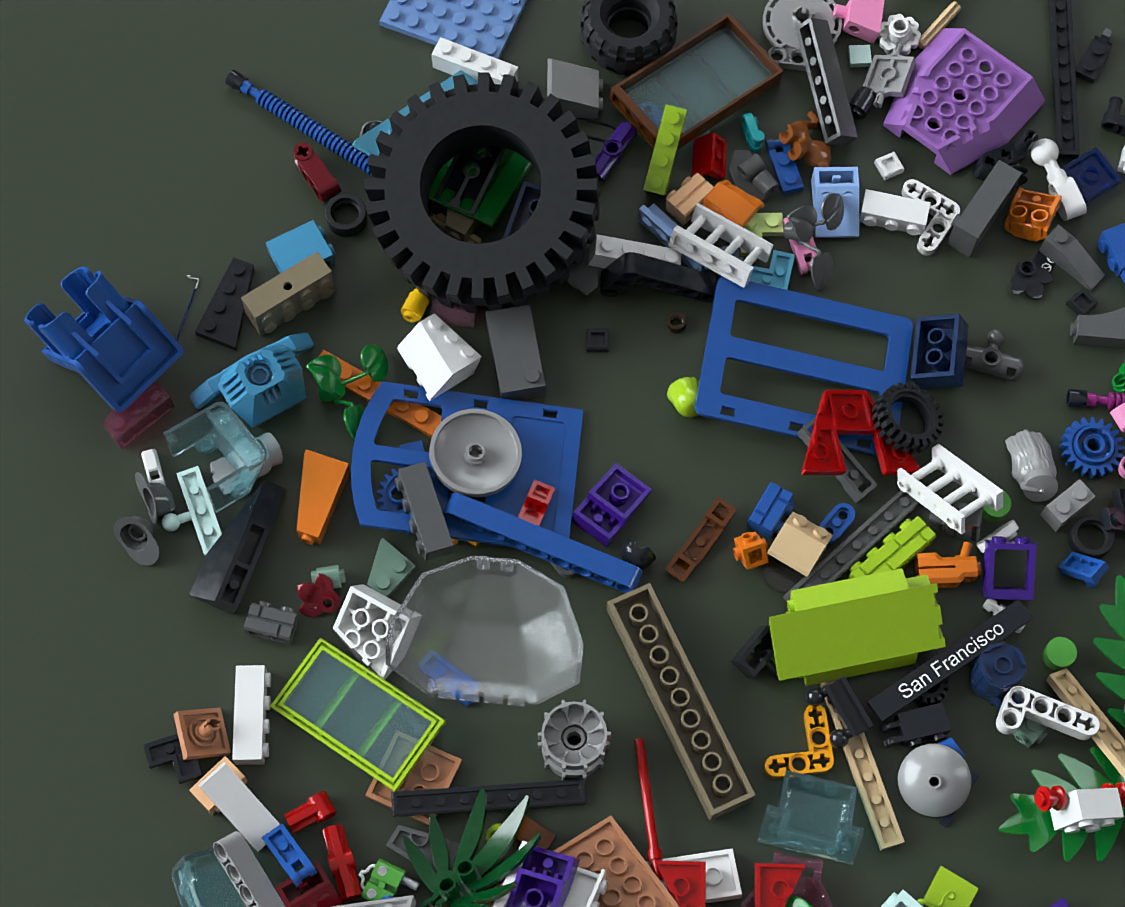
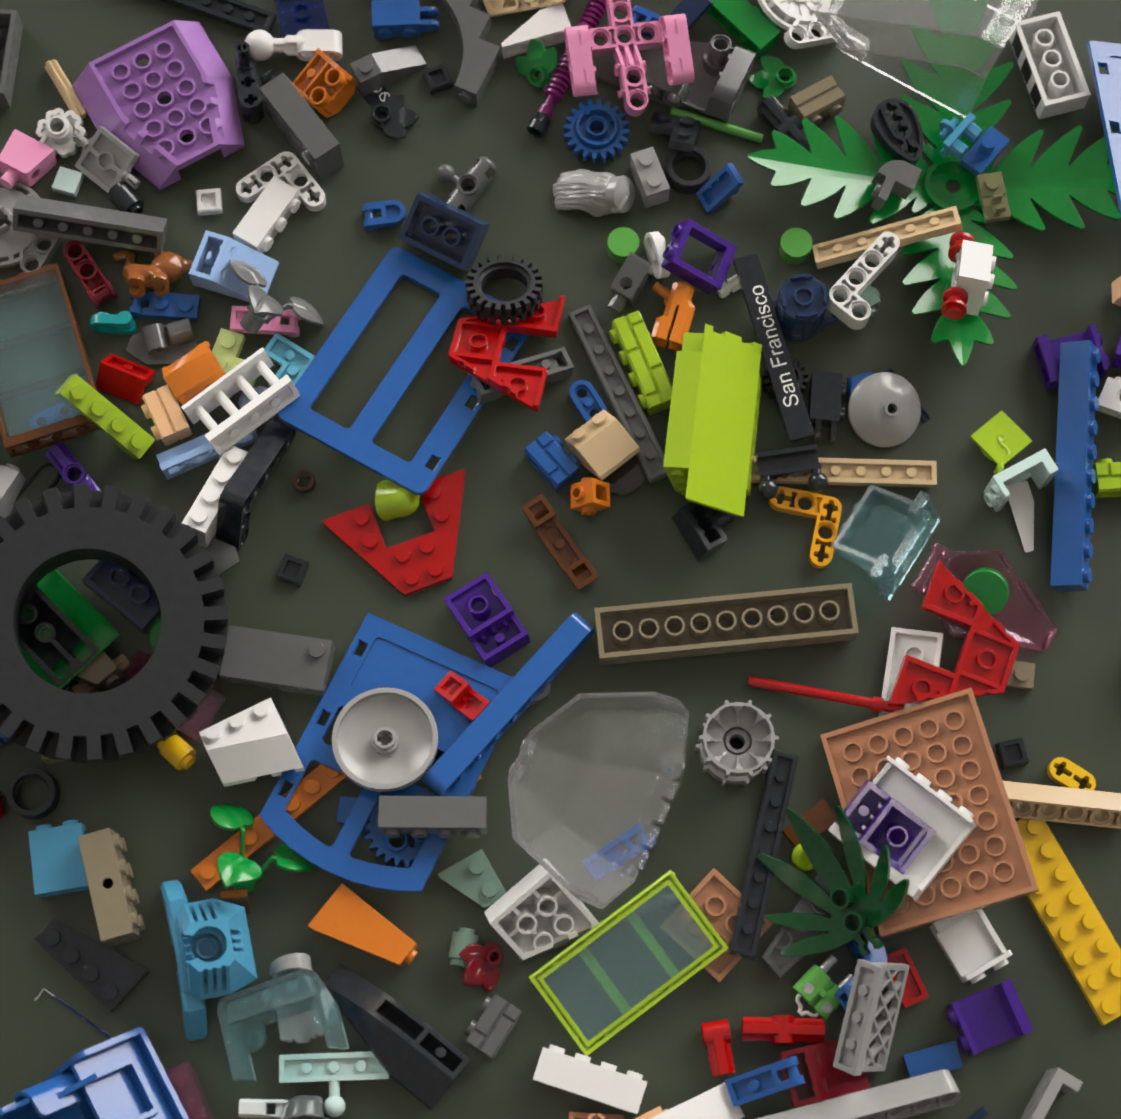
camera: 70 degrees left, 5 degrees up
(311, 390) = (237, 897): none -> reddish brown tile
(637, 556) = (555, 616): black hair -> none
(644, 437) = (417, 562): none -> red wing
(778, 108) = (96, 285): none -> dark red piece
(938, 306) = (392, 214): none -> blue plate
(956, 471) = (588, 258): white fence -> none

